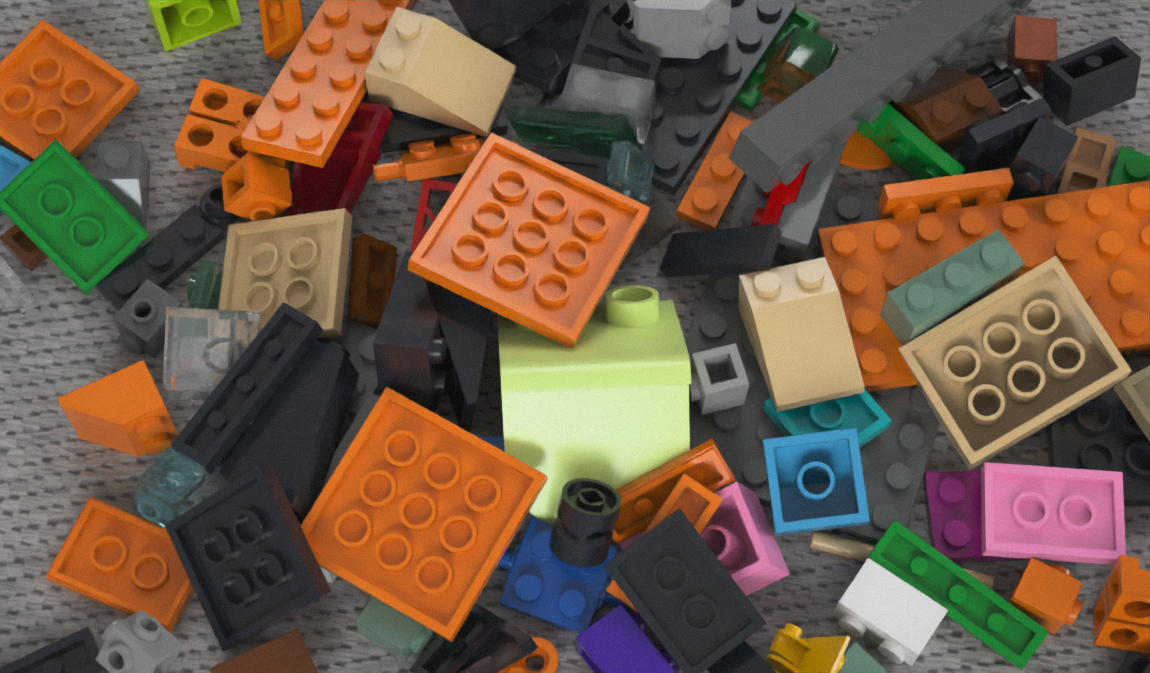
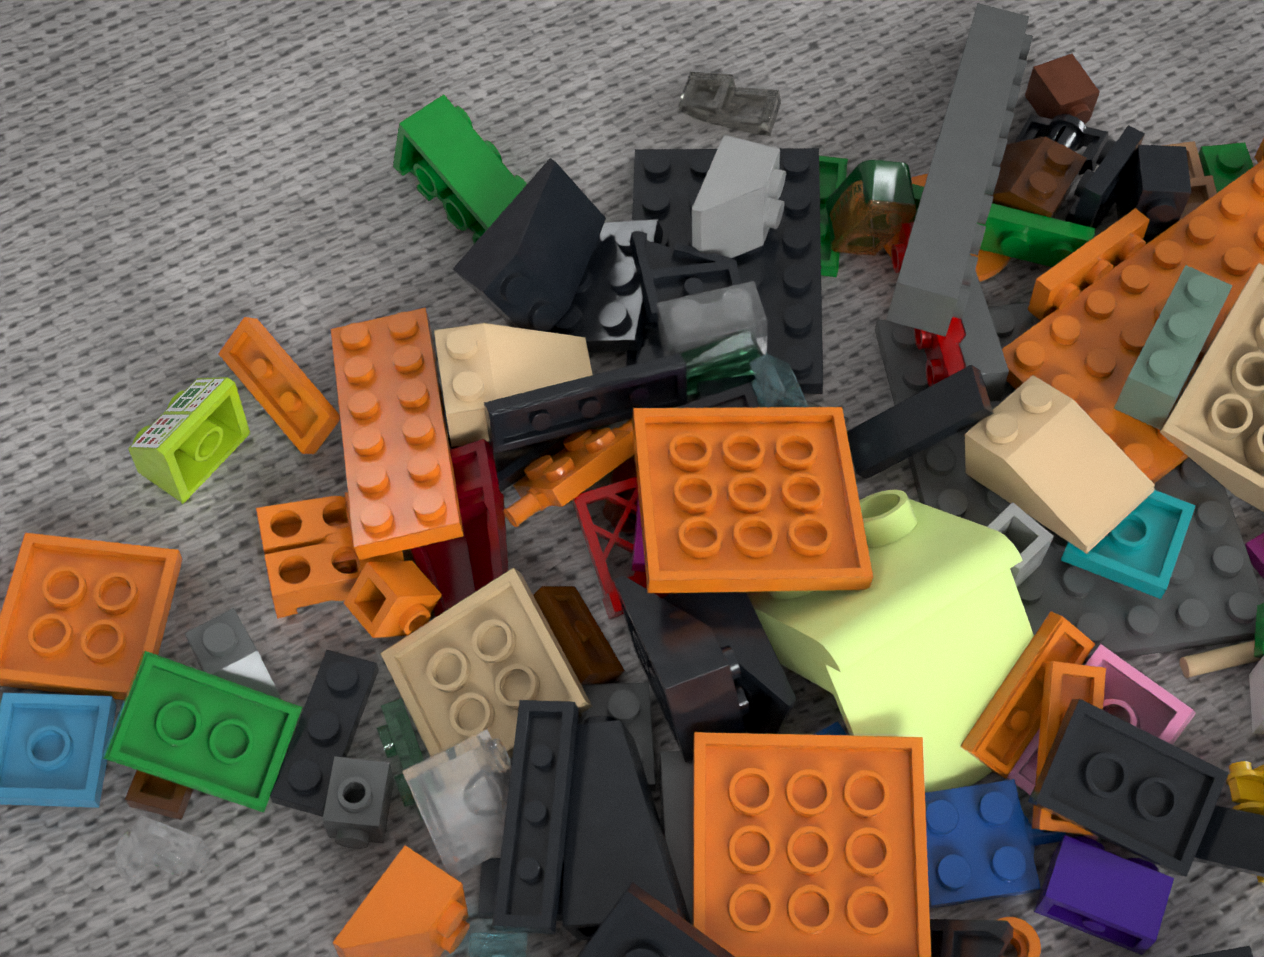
camera: 30 degrees left, 5 degrees down
(212, 206) = (352, 640): black plate -> none
(474, 114) = (585, 403): none -> black tile
(585, 522) = (981, 768): black wheel -> none
(715, 180) = (852, 348): orange plate -> none
(815, 482) = (1177, 605): dark azure slope -> none
(1091, 80) = (1140, 92): black brick -> none

